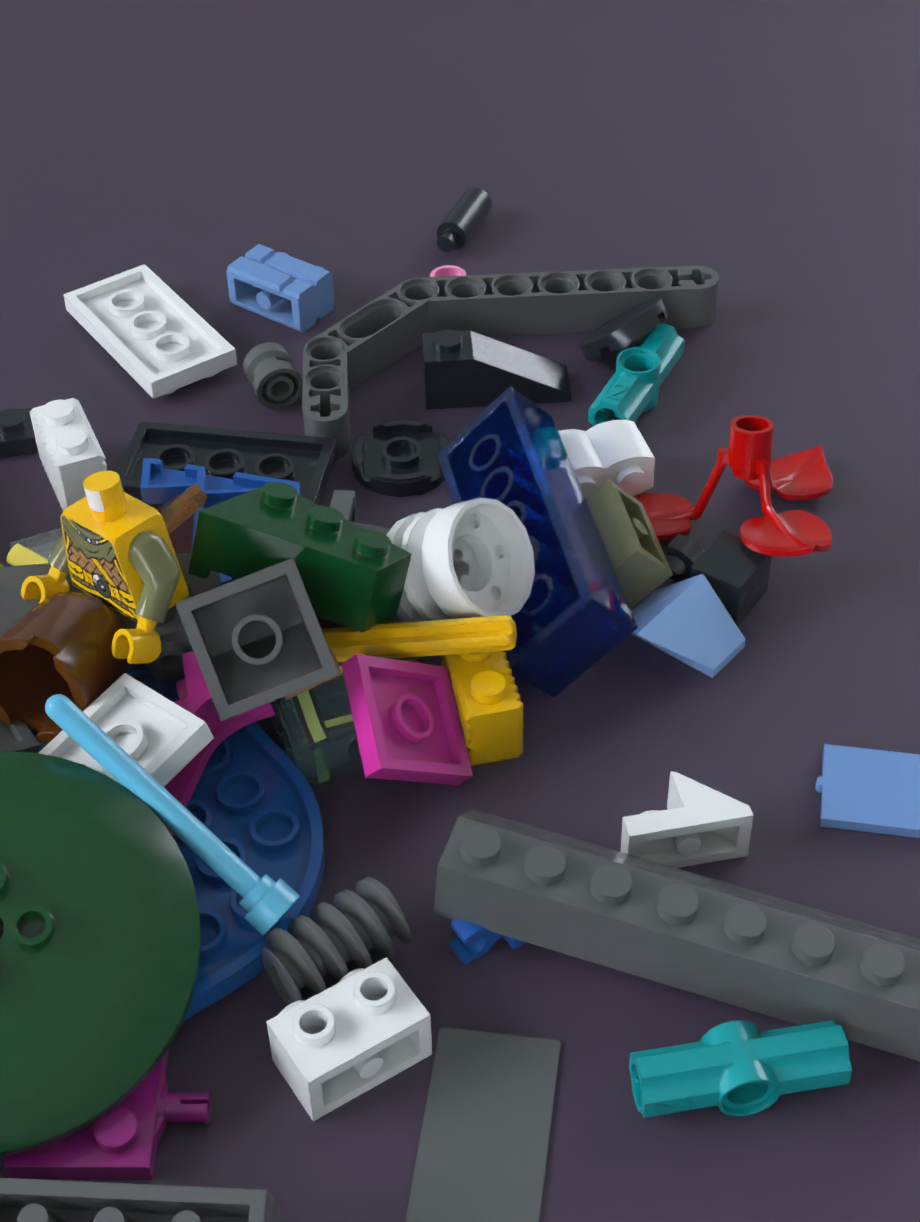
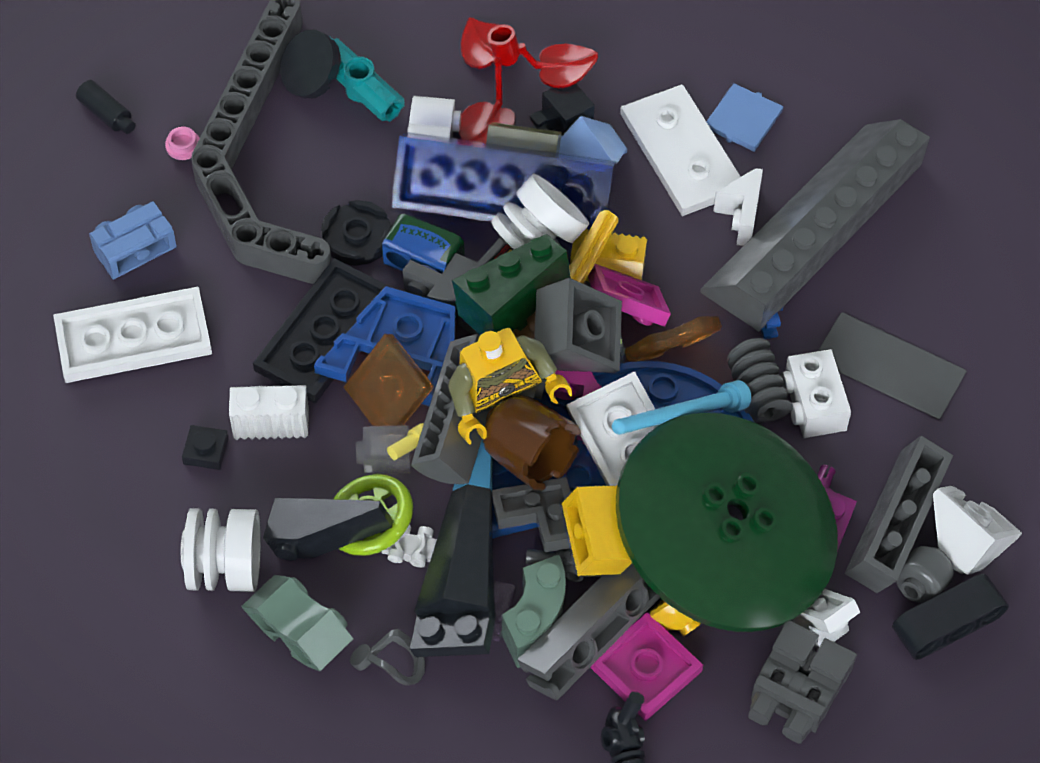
camera: 70 degrees left, 15 degrees up
(273, 375) = (242, 274): dark grey wheel -> none
(363, 807) = (686, 334): none -> clear orange tile
(391, 490) = (421, 243): none -> blue piece
(475, 370) = (303, 157): black slope -> none
(739, 1068) = (896, 243): teal piece -> none
(758, 726) = (680, 148): none -> white plate

